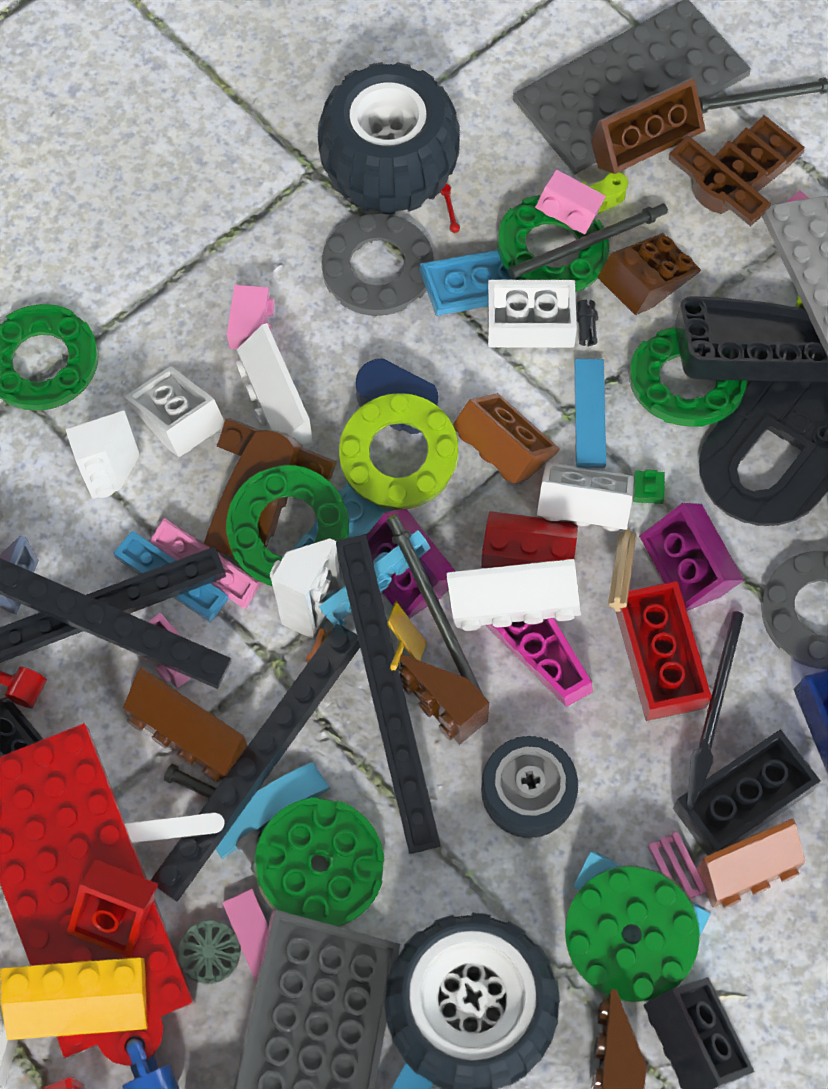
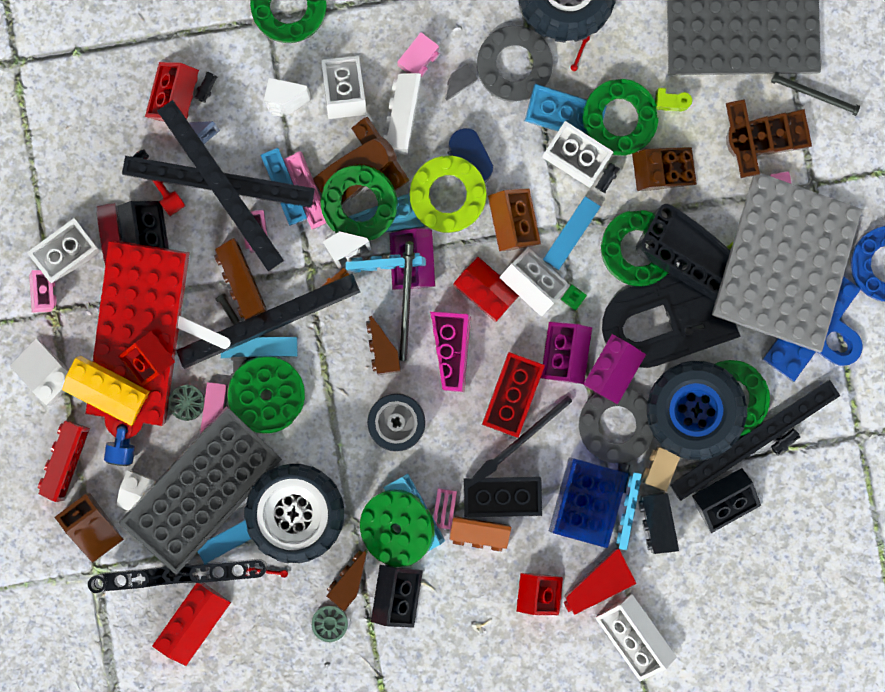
camera: 25 degrees right, 20 degrees up
(321, 319) = (460, 80): none -> flat silver slope
(388, 694) = (353, 329): black plate -> none
(407, 634) = (385, 304): yellow piece -> none
(514, 594) = (450, 322): white slope -> none
(570, 201) = (644, 100): bright pink brick -> none
(622, 570) = (521, 339): tan axle -> none
(647, 216) = (689, 132): pearl dark grey bar -> none
(648, 127) = (725, 81): reddish brown slope -> none
(769, 535) = (614, 369): none -> magenta slope

